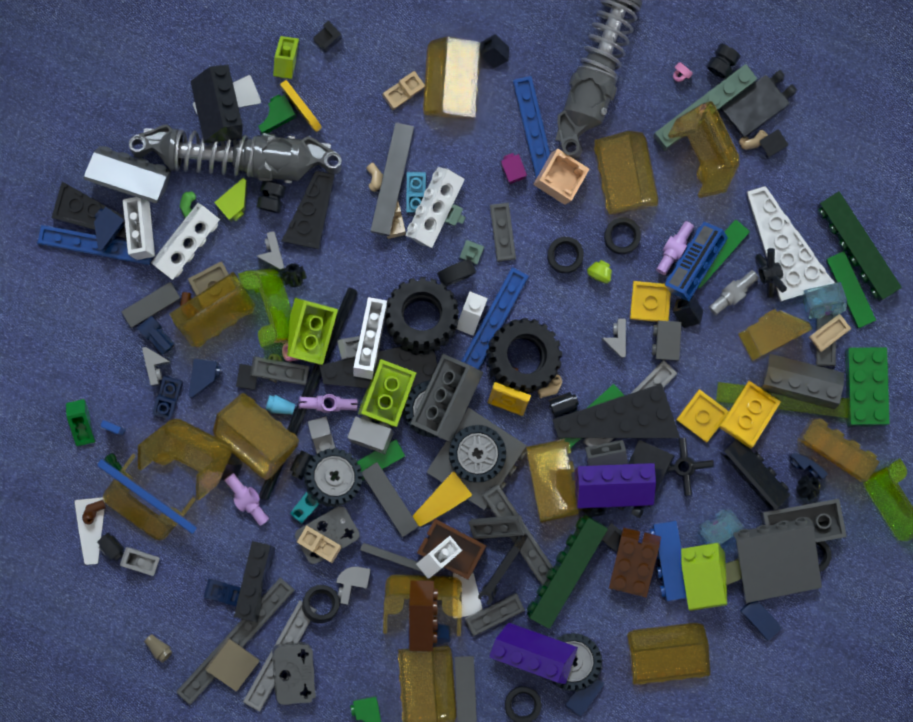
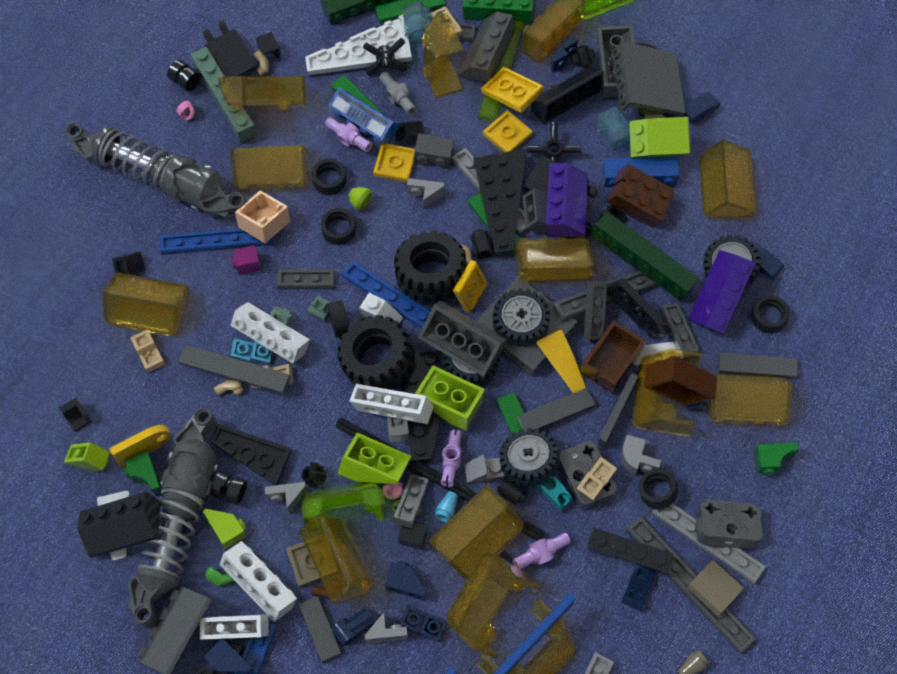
camera: 80 degrees left, 20 degrees down
(370, 435) = (489, 419): light grey brick -> none
(439, 557) = (622, 361): white slope -> none

